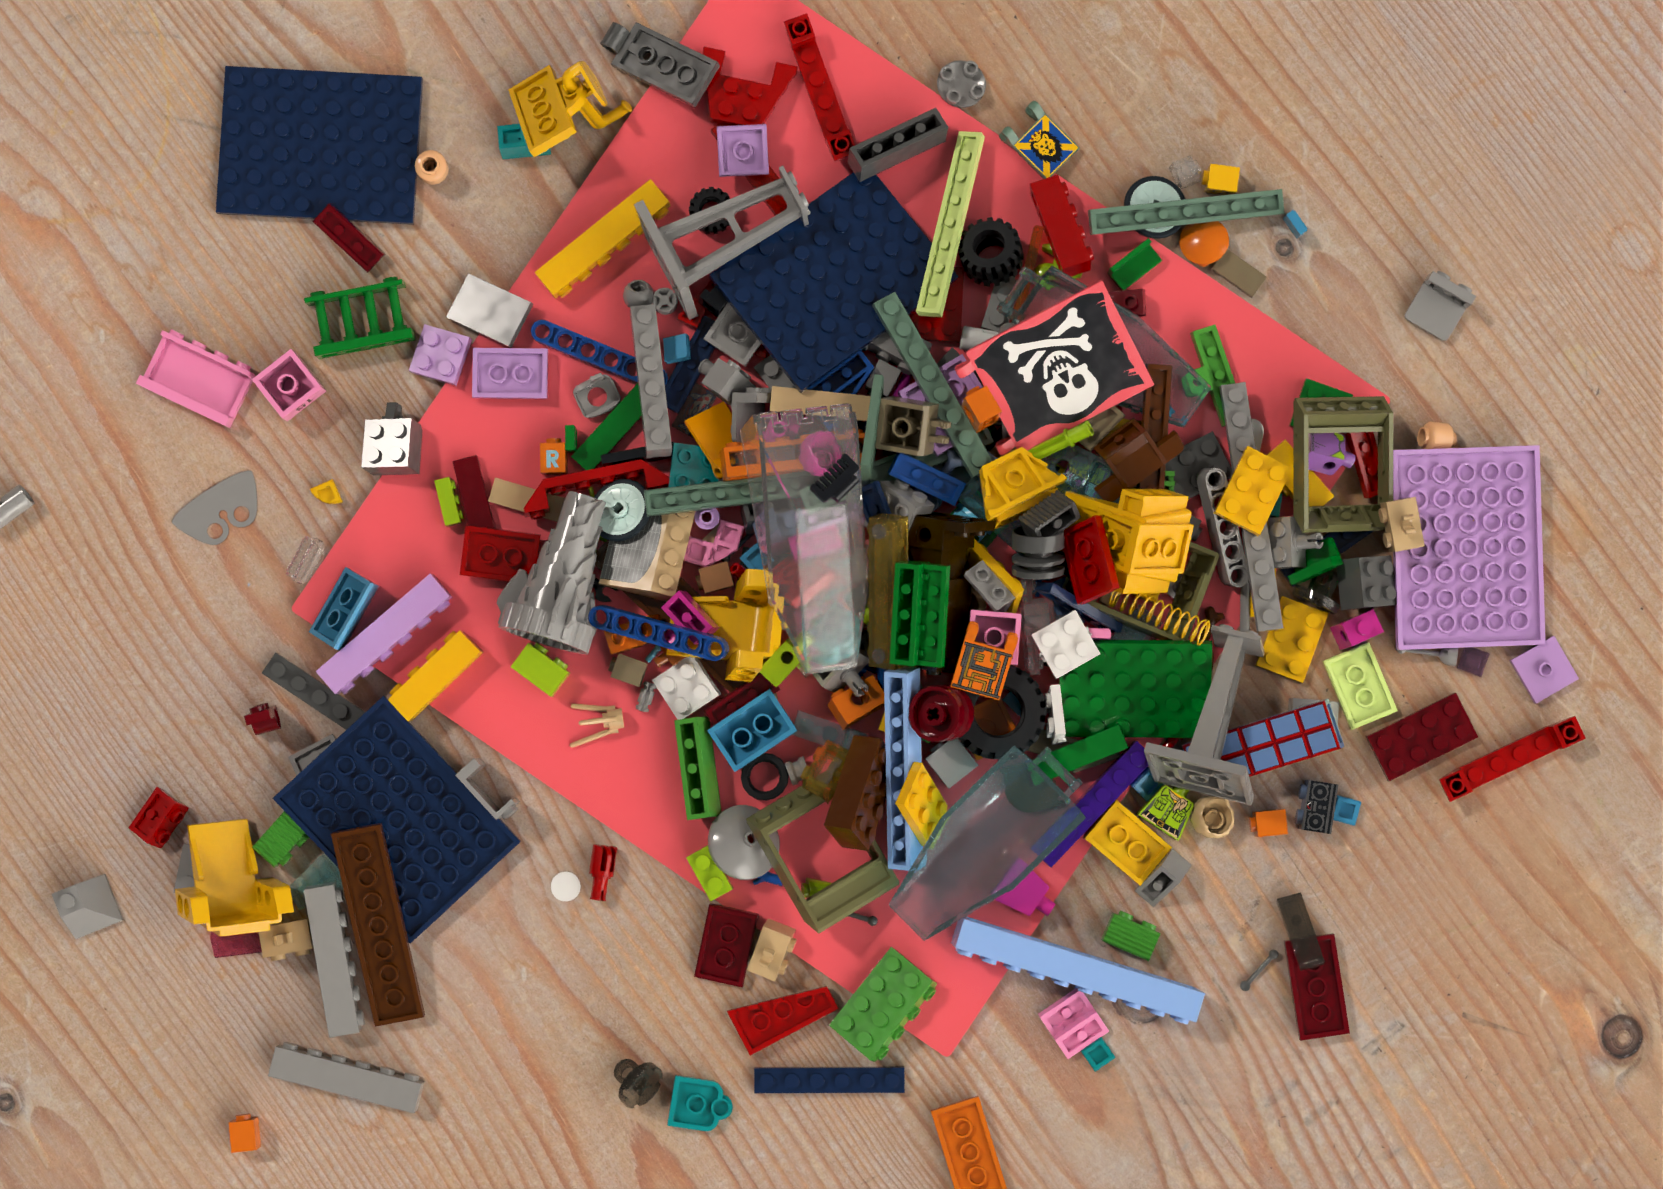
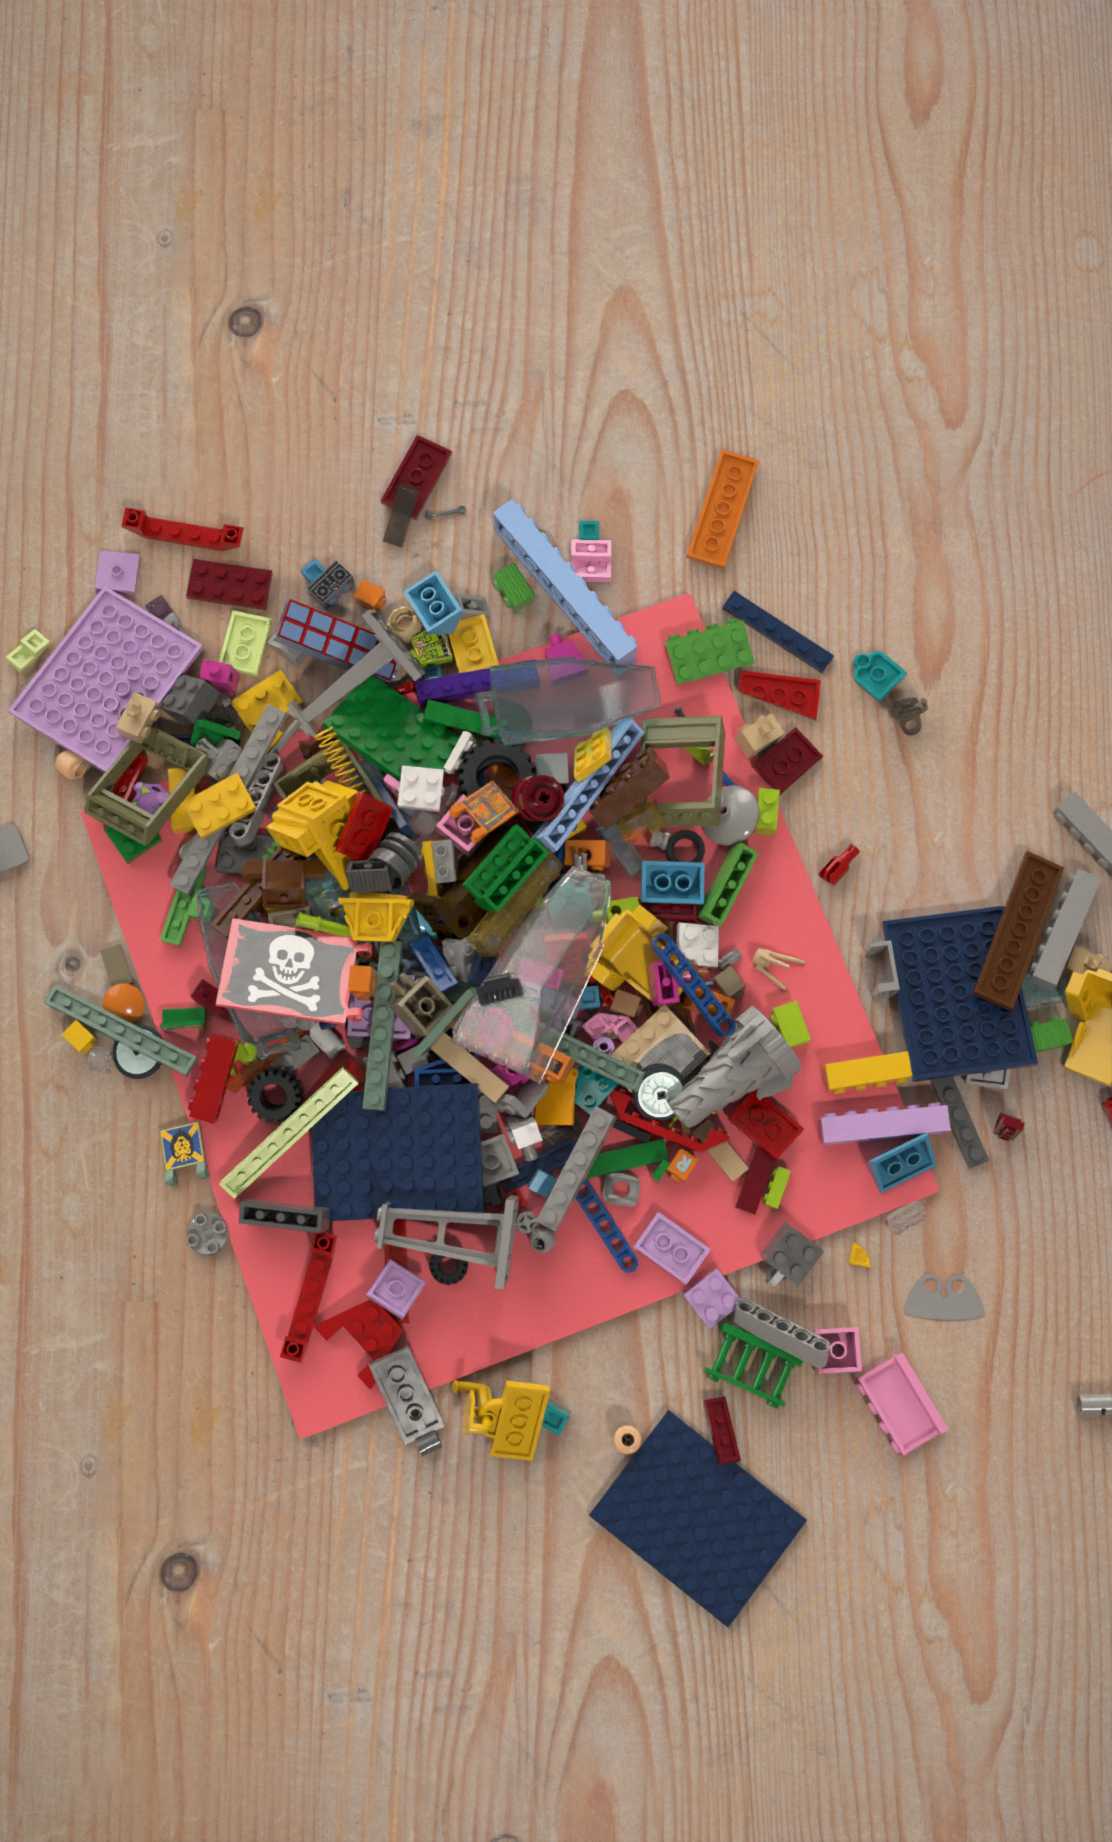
camera: 150 degrees left, 10 degrees down
(339, 360) = (782, 1333): none -> light grey beam
(489, 310) = (656, 1305): tile -> none
(565, 886) = (870, 874): white sticker -> none
(601, 241) = (540, 1298): yellow brick -> none
(1195, 854) = (434, 604): none -> dark azure slope
(1295, 224) = (53, 972): dark azure tile -> none
(1570, 524) = (28, 651): none -> yellowish green slope

